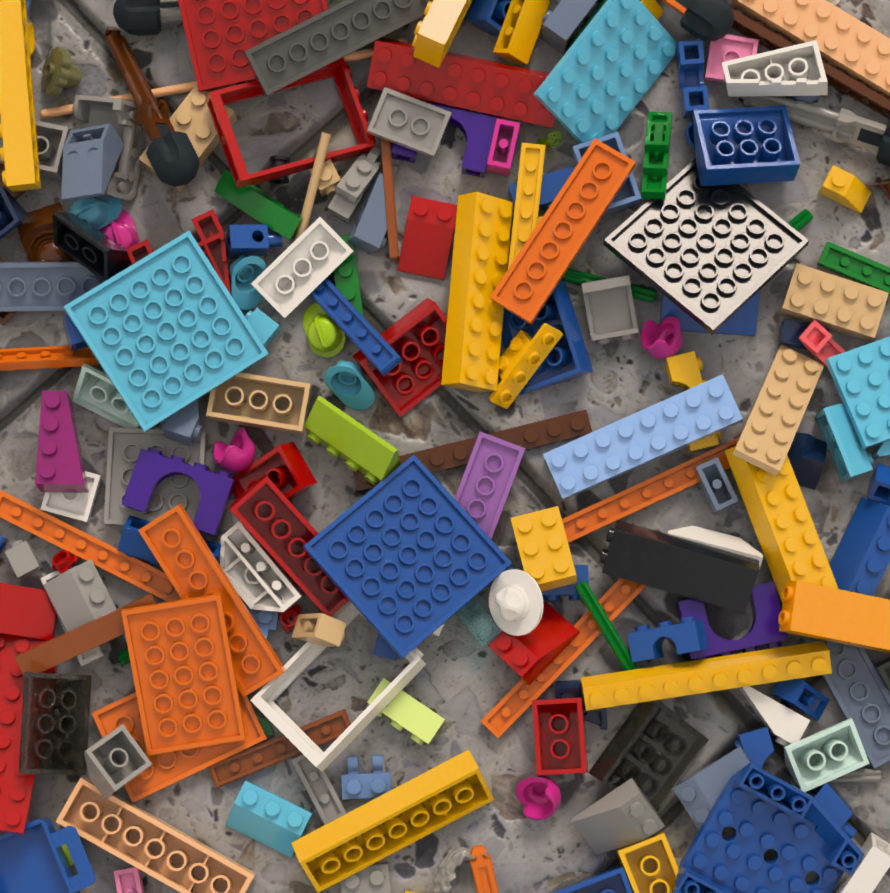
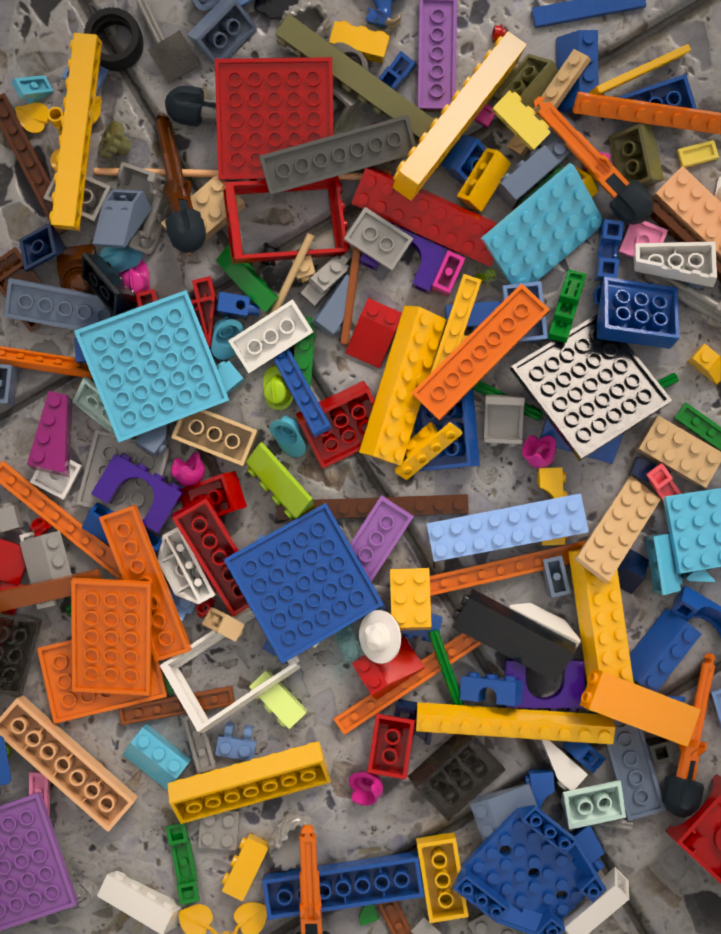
camera: 15 degrees right, 5 degrees up
(115, 761) = (45, 692): light grey slope -> none
(618, 819) = (423, 818): light grey slope -> none

